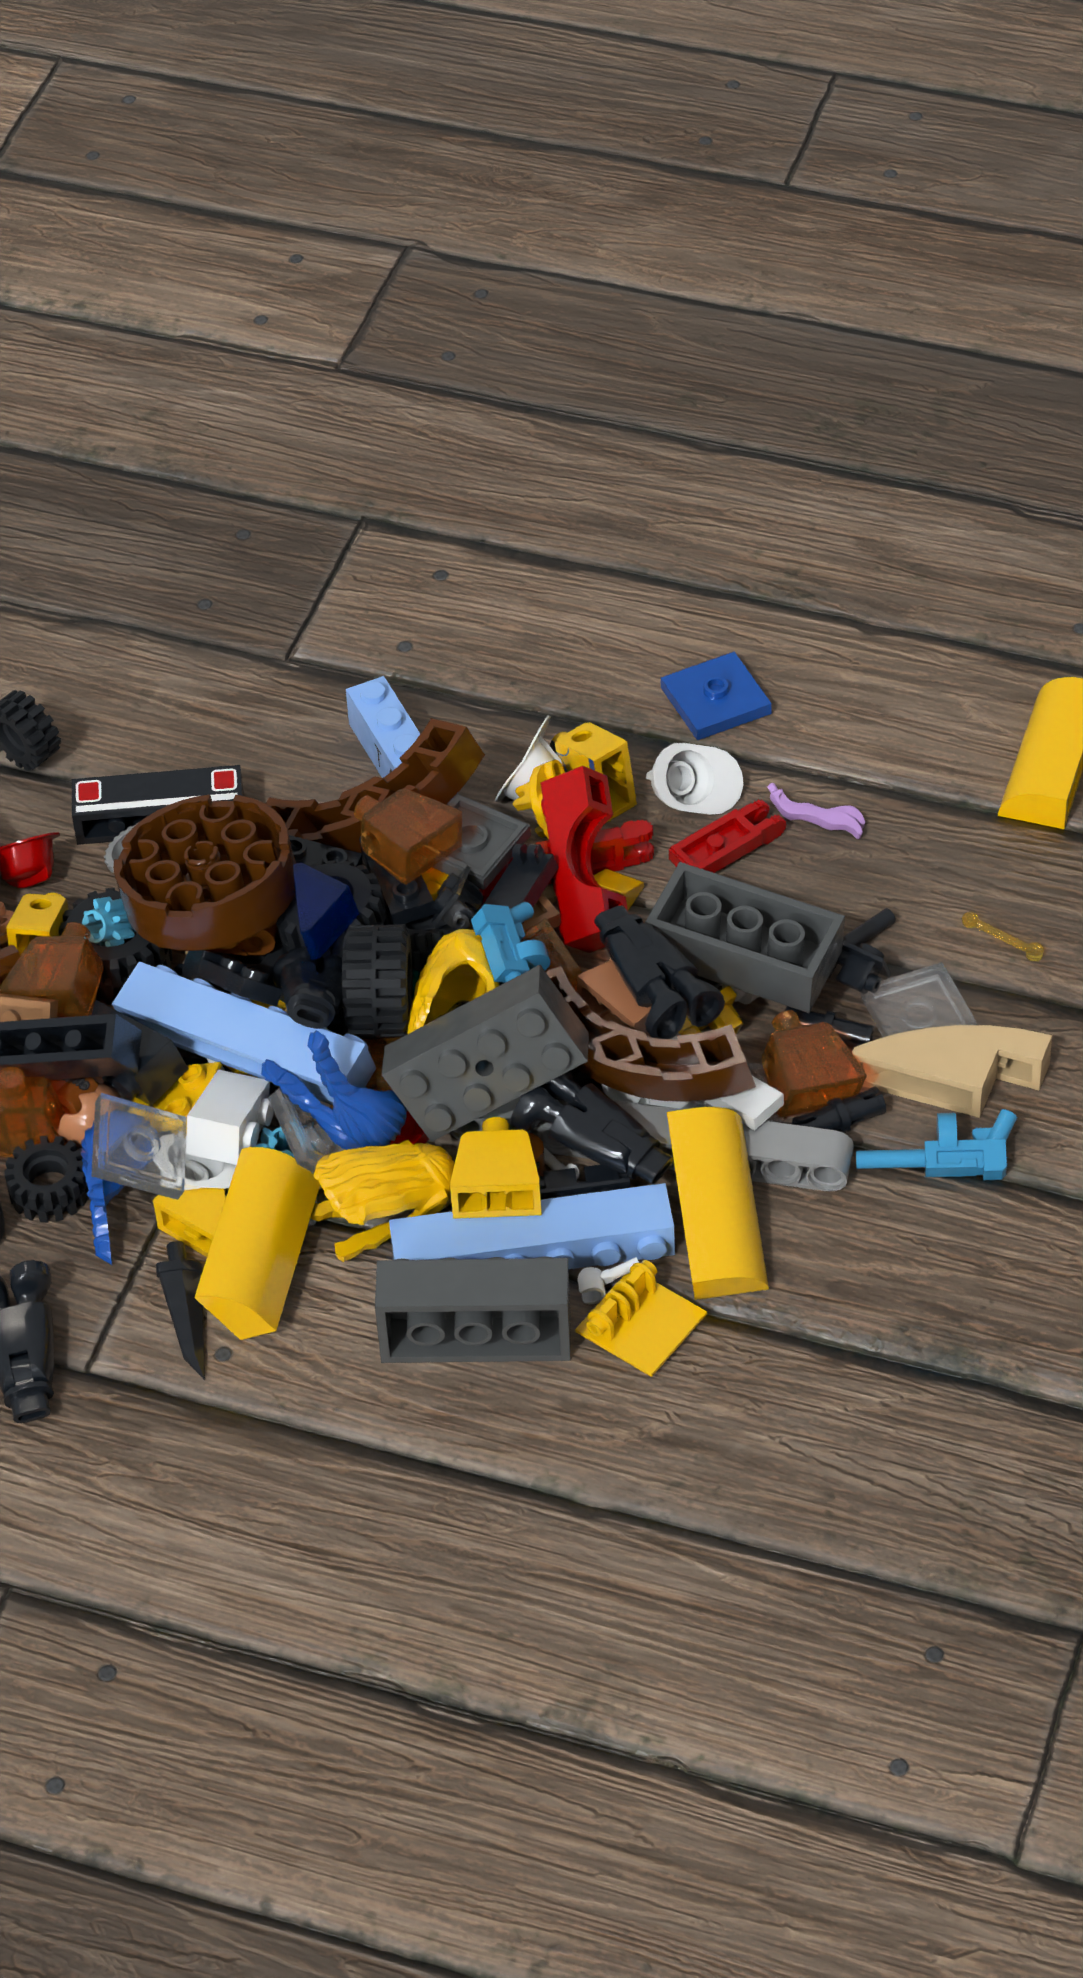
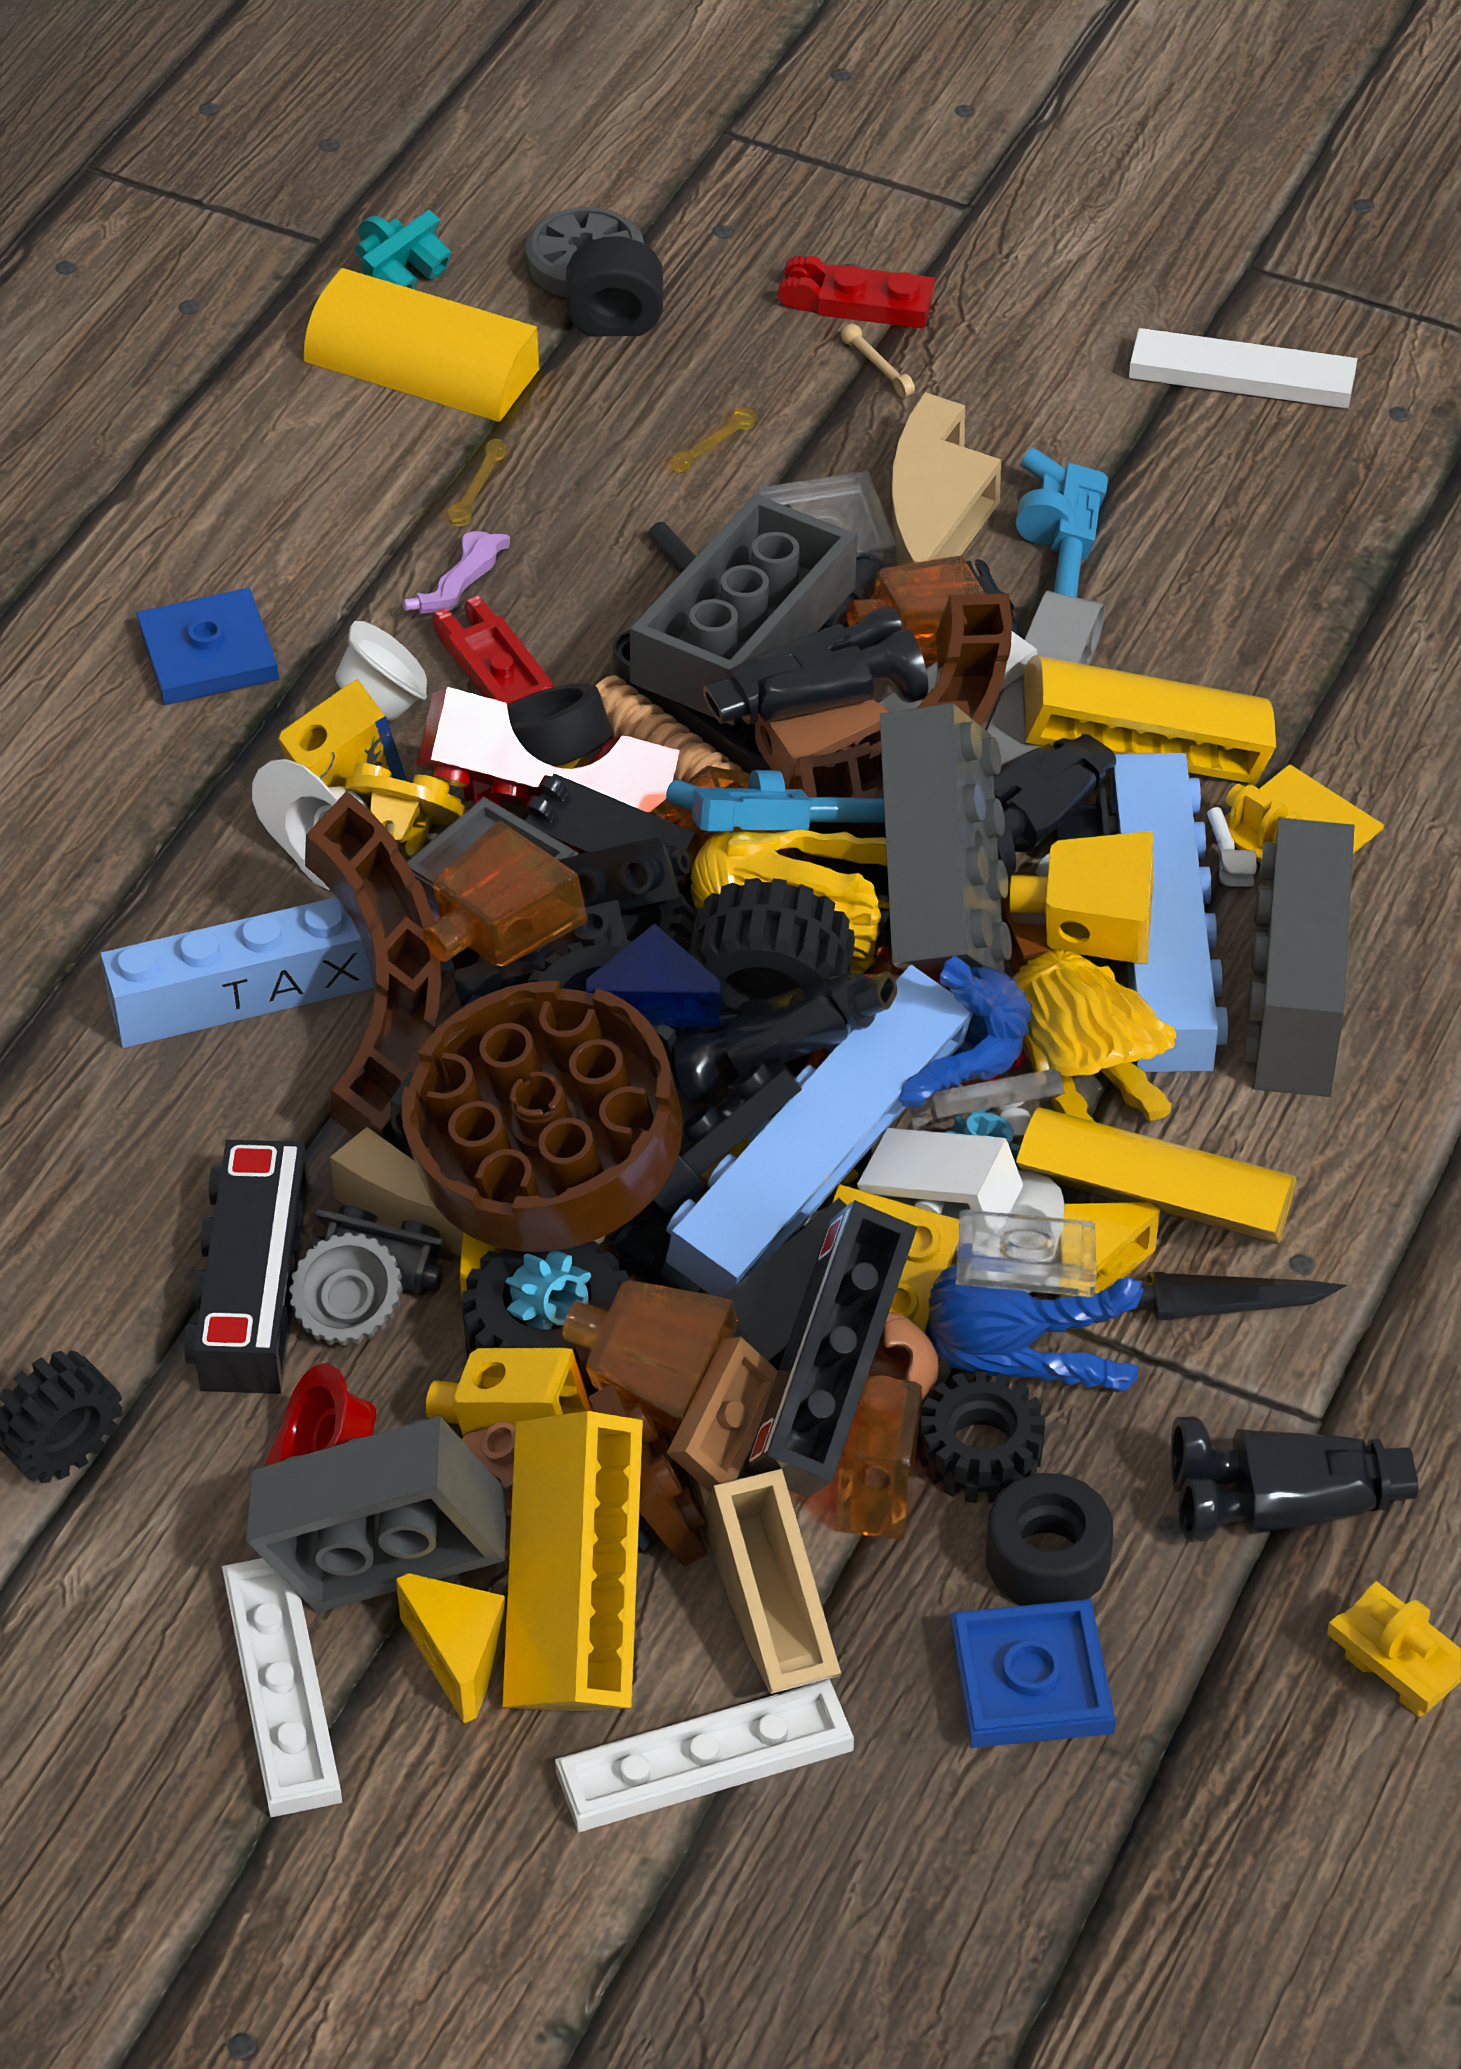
camera: 85 degrees left, 0 degrees up
(638, 868) = (560, 723): none -> black tyre
(887, 806) = (460, 512): none -> clear yellow hinge

